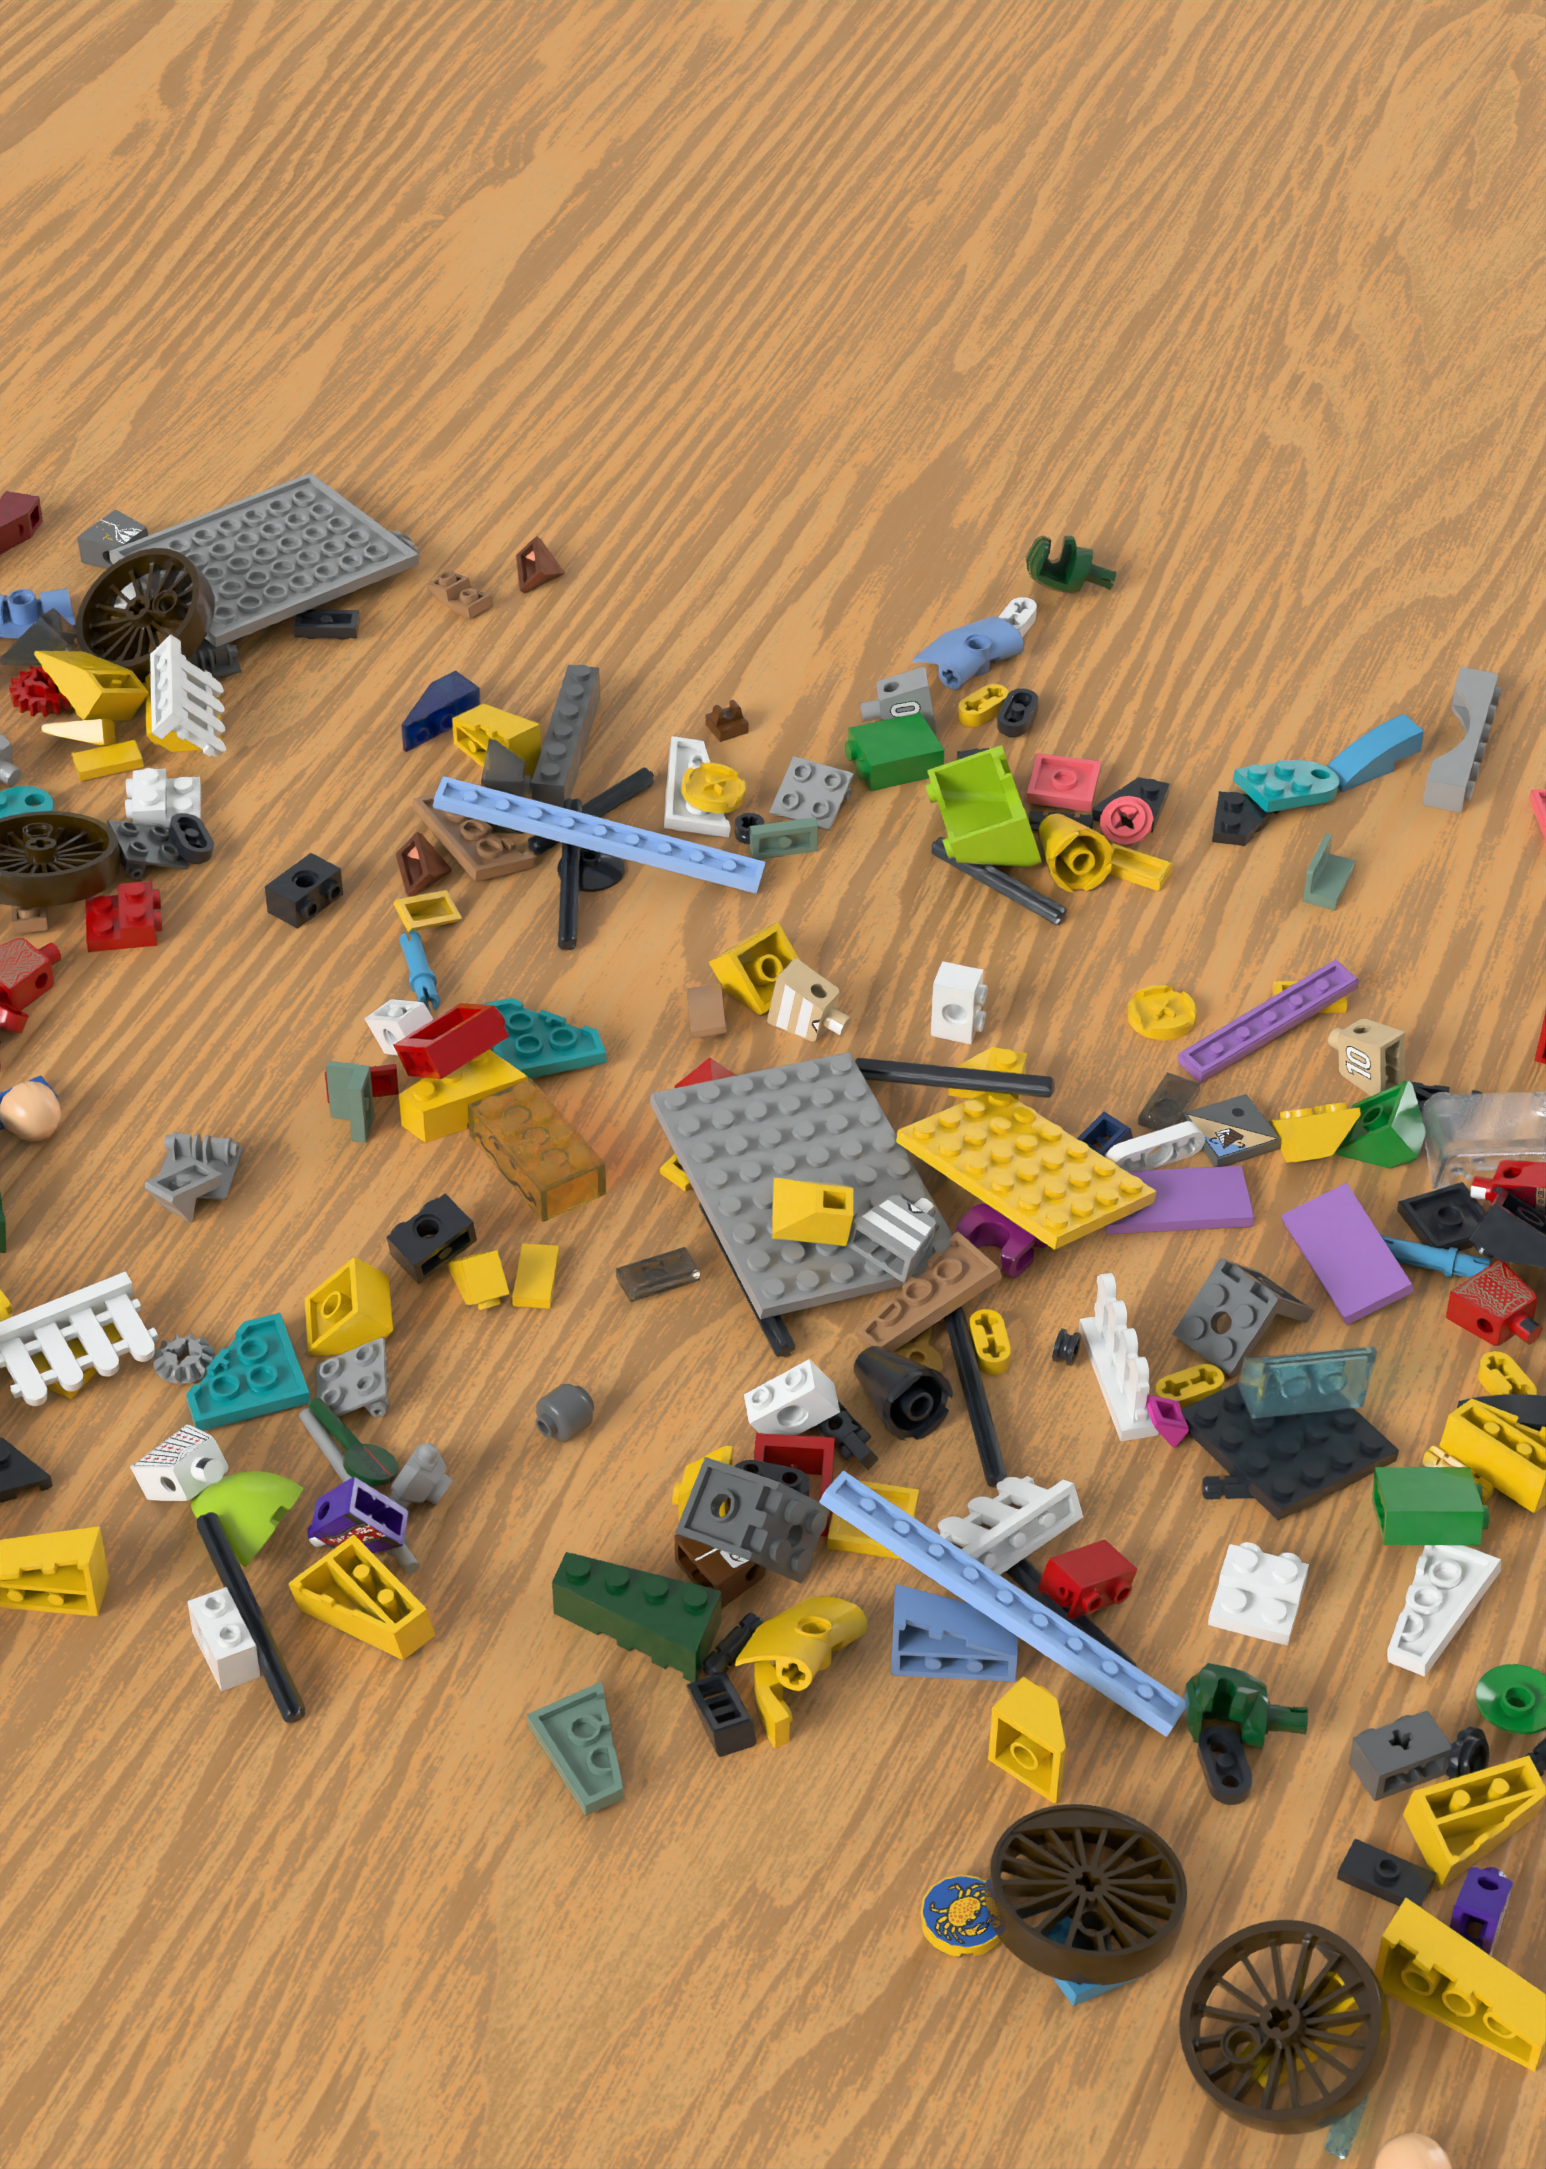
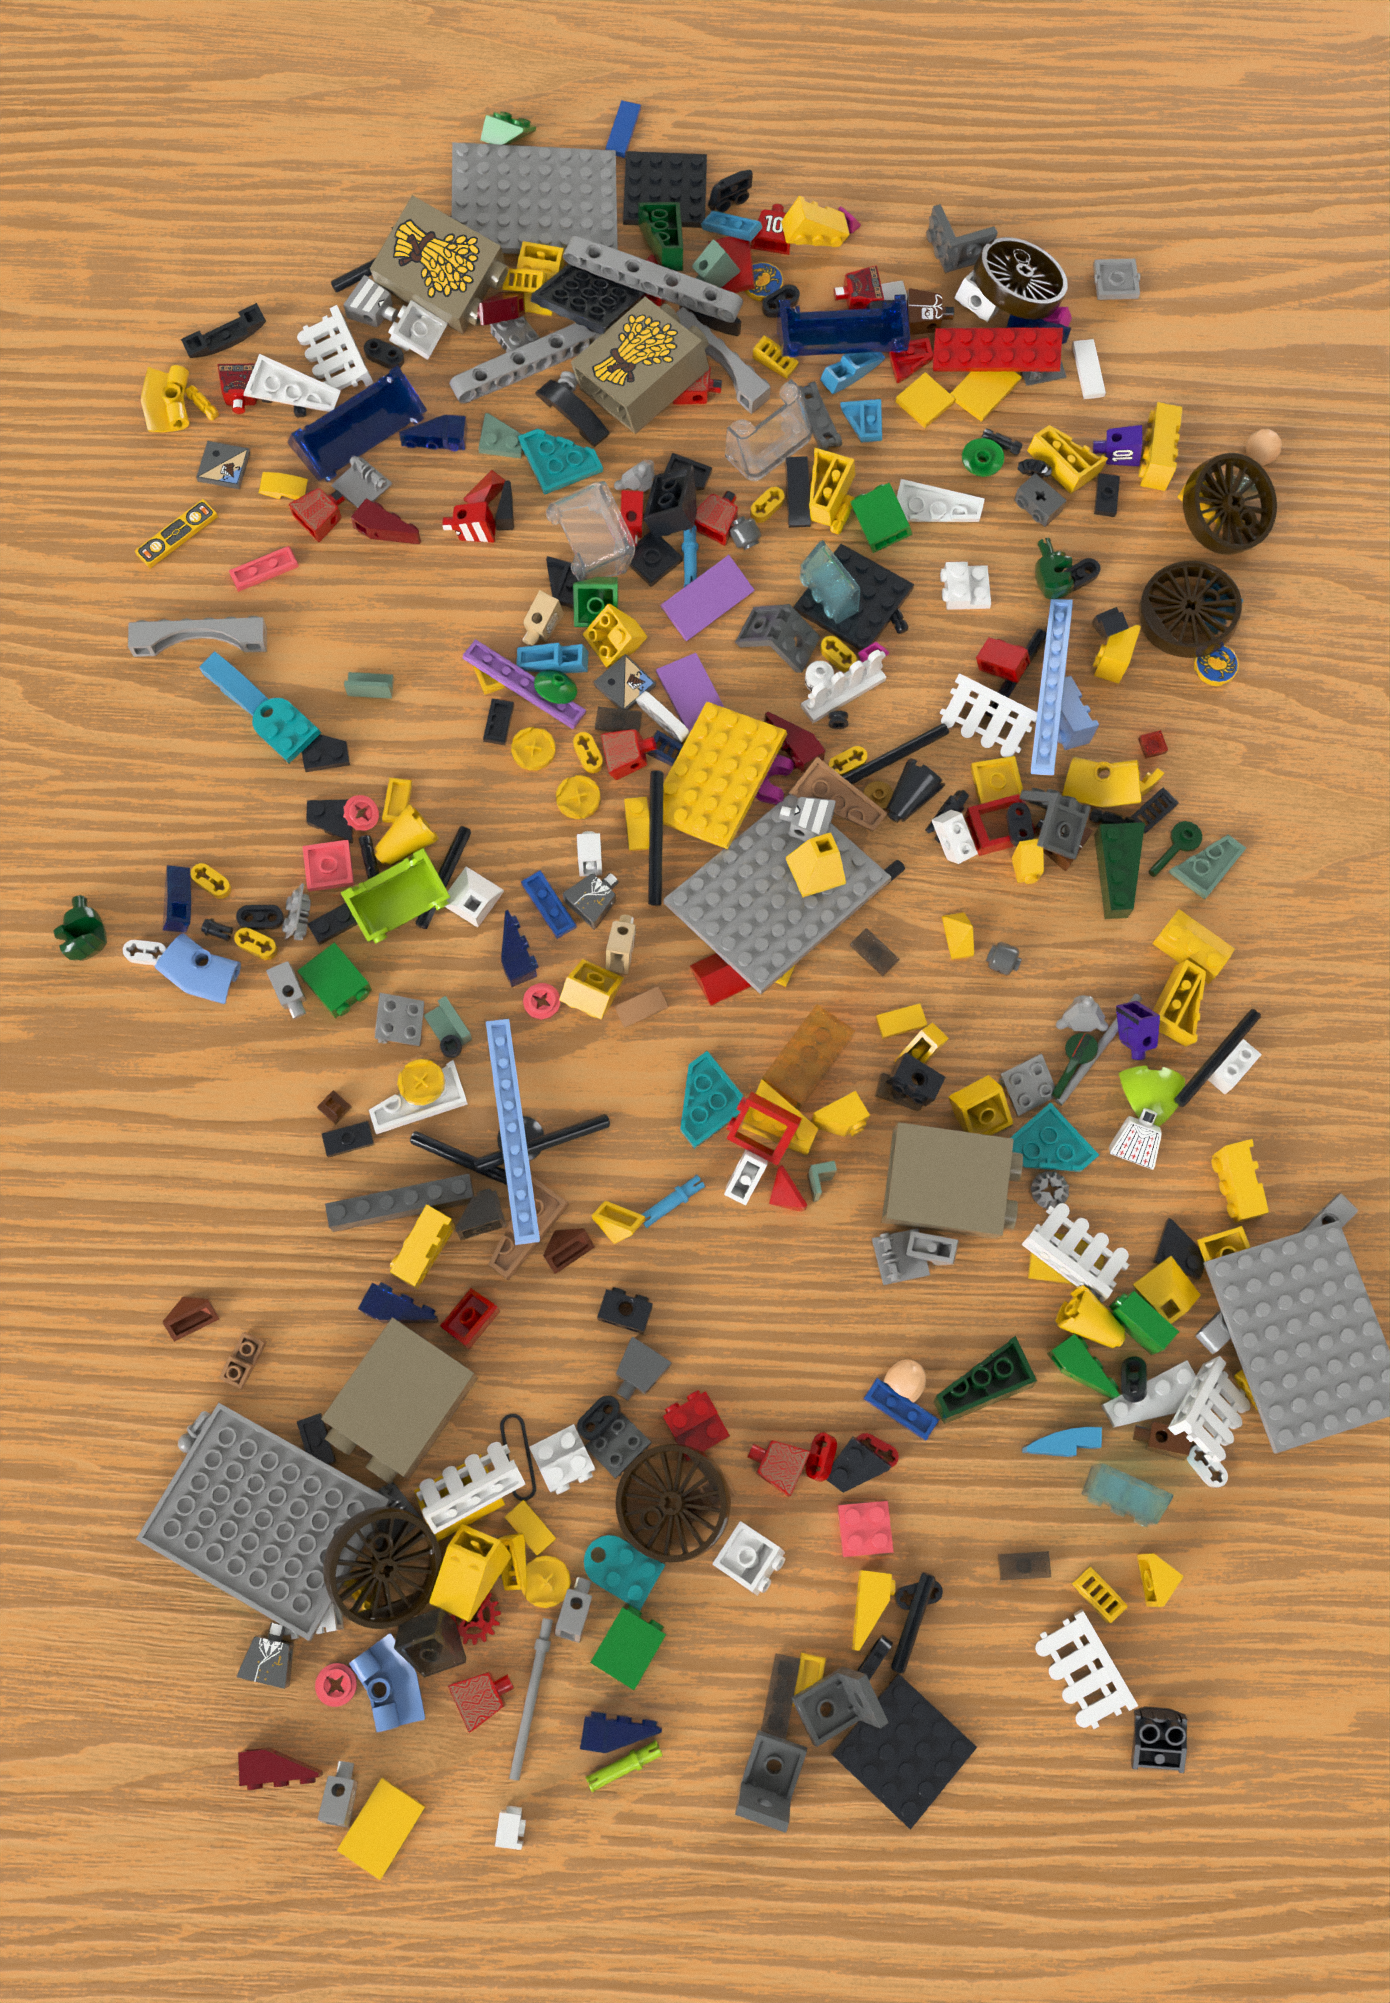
camera: 115 degrees left, 30 degrees up
(41, 758) = (546, 1581): none -> yellow tile
(58, 579) = (323, 1685): none -> coral gear
(205, 765) = (527, 1452): none -> black piece
(226, 886) = (640, 1369): none -> dark grey torso
(262, 1222) = (951, 1181): none -> dark tan brick
(325, 679) = (397, 1401): none -> dark tan brick
(382, 766) = (470, 1318): none -> red slope
(423, 1148) = (842, 1116): none -> yellow slope
(454, 1669) = (1189, 940): none -> yellow slope
(635, 1386) = (959, 935): none -> yellow slope
(652, 1742) = (1185, 837): none -> dark green piece
(677, 721) = (347, 1139): none -> black plate
(766, 916) = (539, 991): none -> coral gear
(844, 1750) = (1153, 744): none -> clear red plate
(848, 911) = (514, 957): none -> clear blue slope
(891, 1002) = (592, 898): none -> dark grey torso
(904, 968) = (548, 904): none -> blue tile
(950, 892) = (473, 896): none -> white slope
(1011, 730) = (298, 908): none -> light grey hinge
(1023, 671) = (216, 929): none -> black pin
(1046, 1284) = (799, 743): none -> dark red slope
(1063, 1038) = (578, 797): none -> yellow tile
(1072, 645) = (177, 899): none -> clear blue slope
(1089, 1725) = (1110, 623): none -> black slope
(1090, 687) = (213, 877): none -> yellow beam
(1109, 1086) = (626, 752): none -> red torso
(1130, 1063) = (592, 750): none -> yellow beam
(1155, 1337) = (817, 673): none -> white head
(1217, 983) = (498, 722): none -> black plate
(1242, 1058) = (555, 687): none -> green dish
(1299, 1063) = (553, 657): none -> dark azure slope
(1451, 1324) = (745, 533): none -> dark grey head

